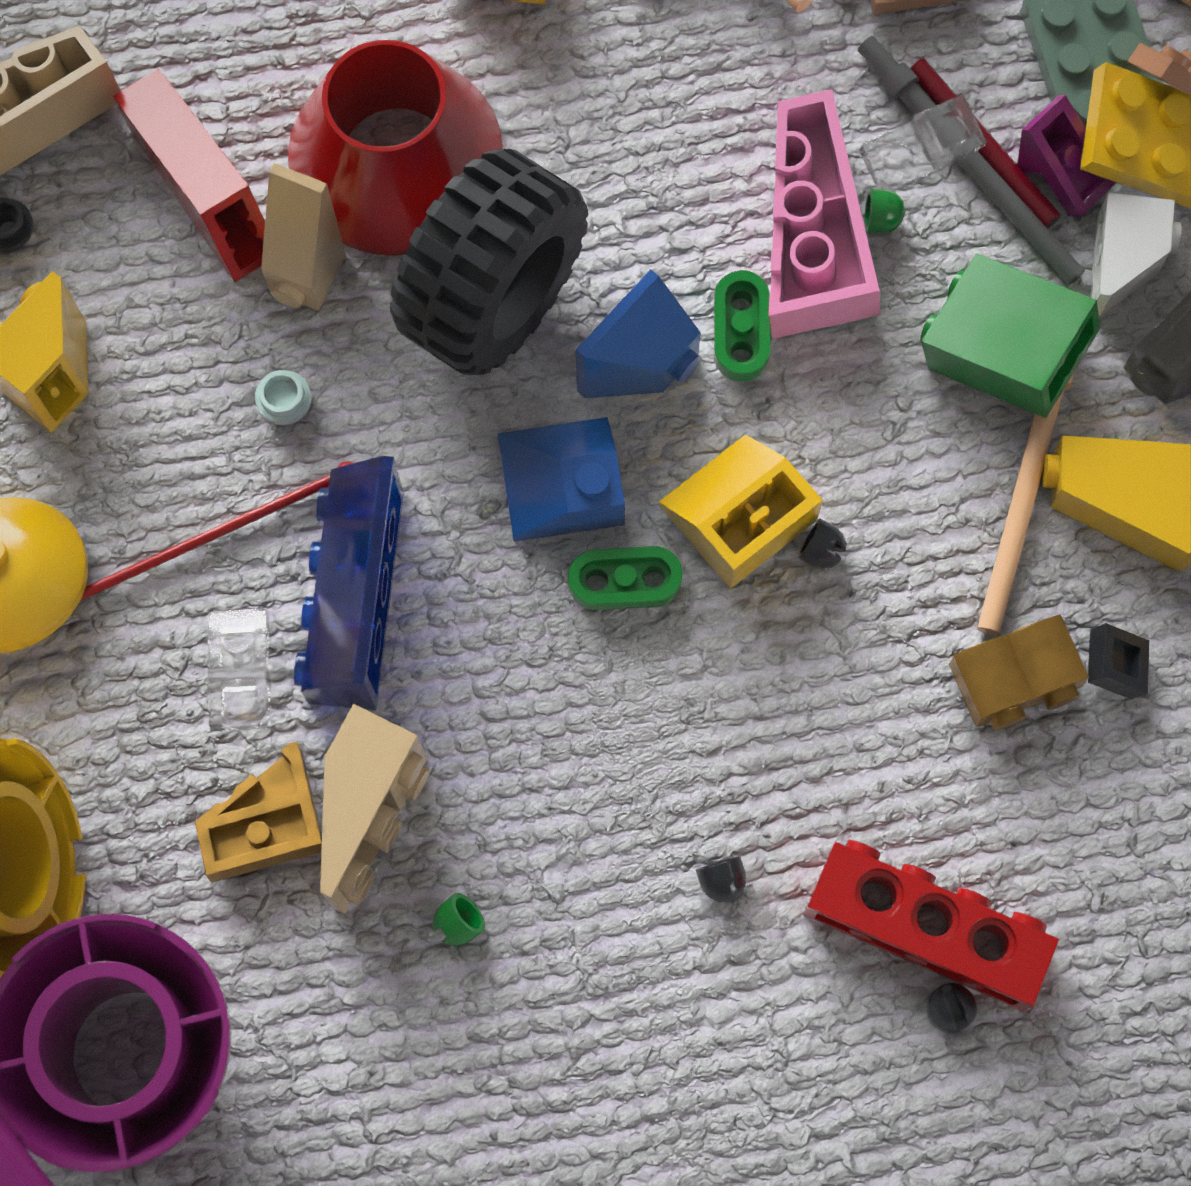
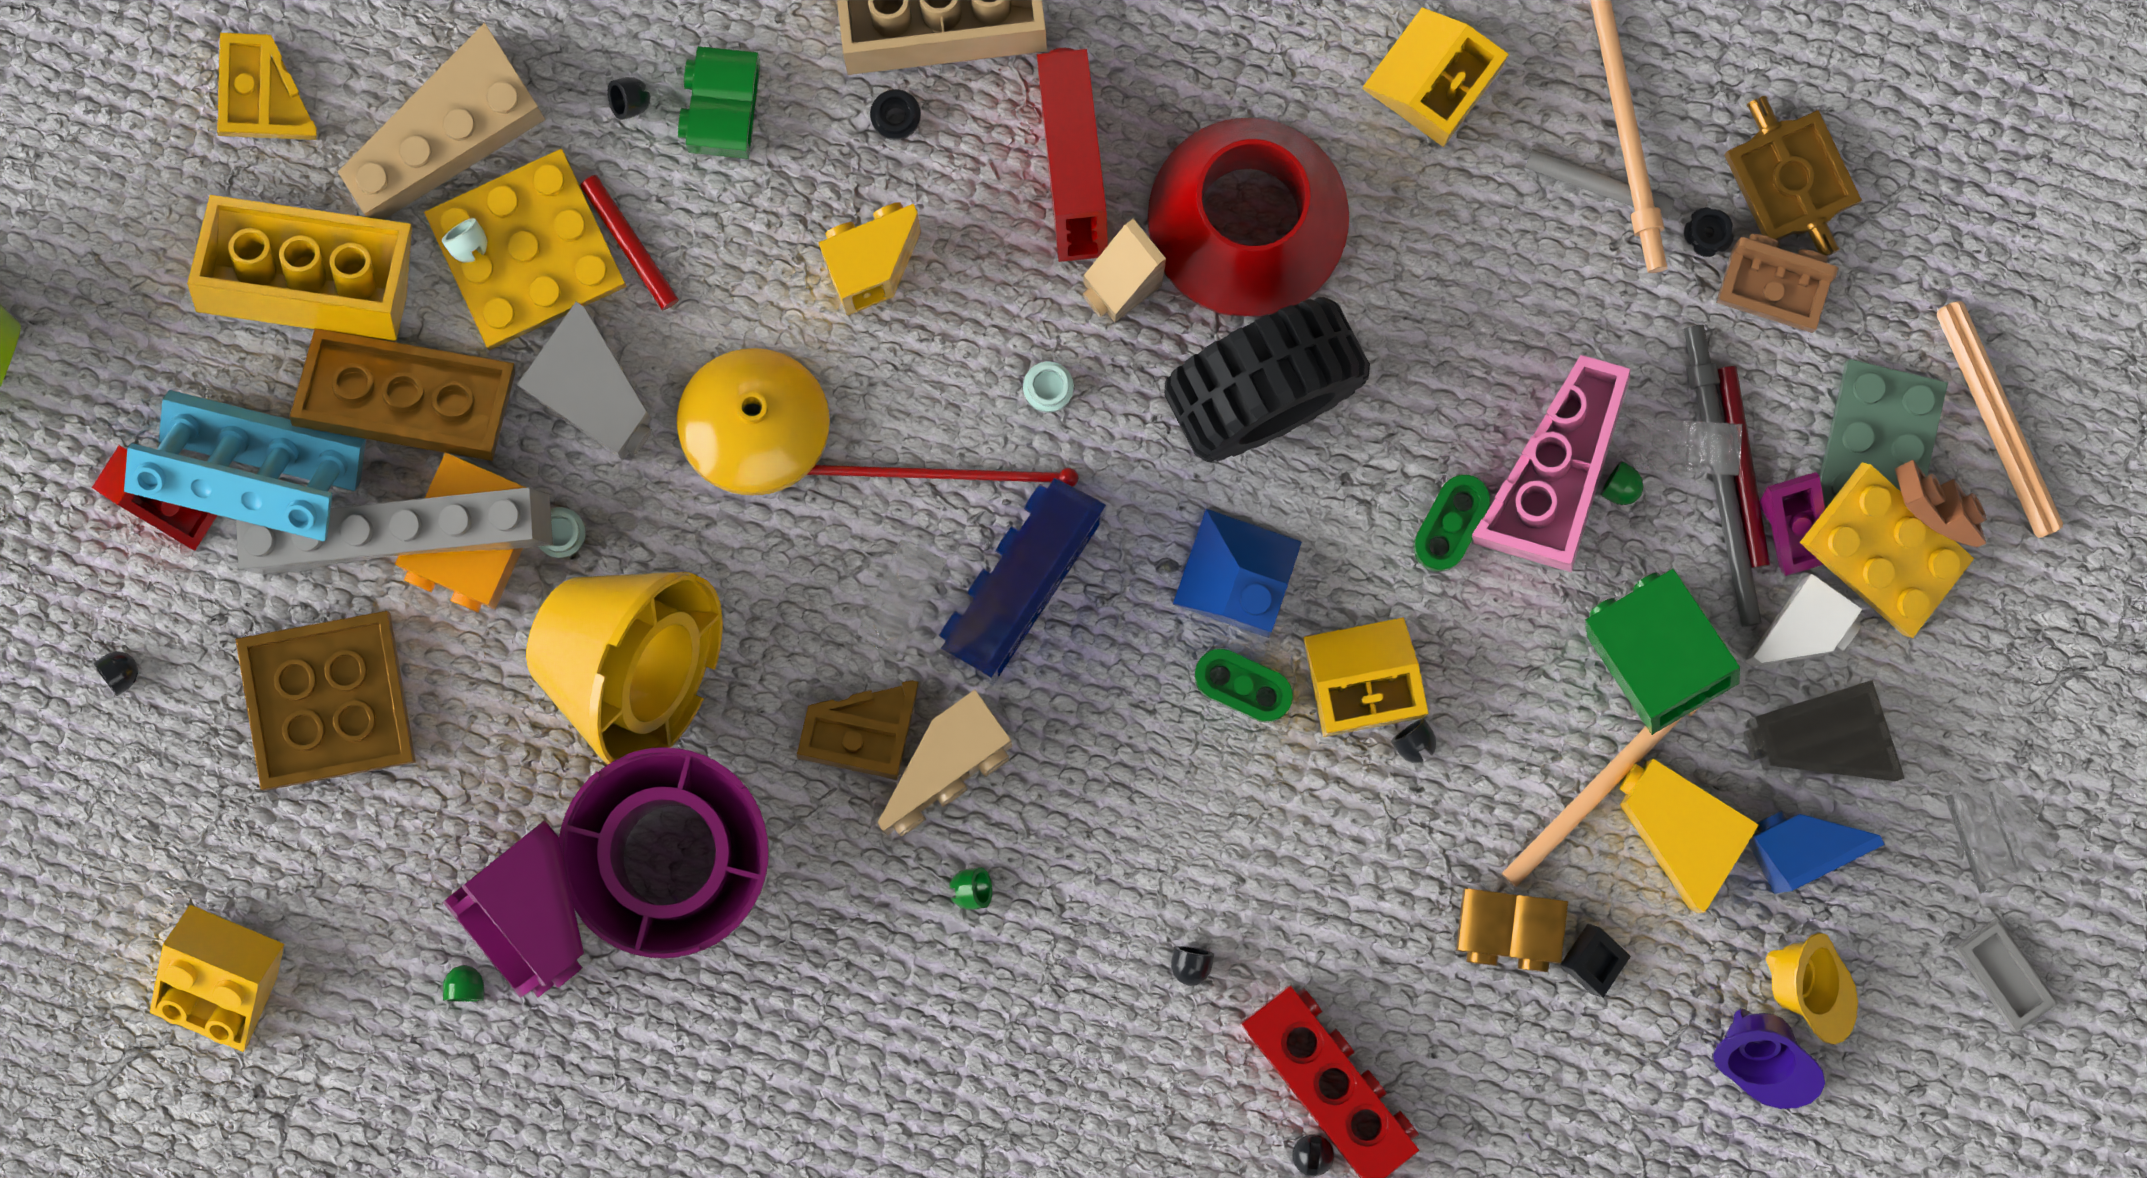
camera: 25 degrees right, 10 degrees up
(639, 345) = (1358, 503): blue slope -> none

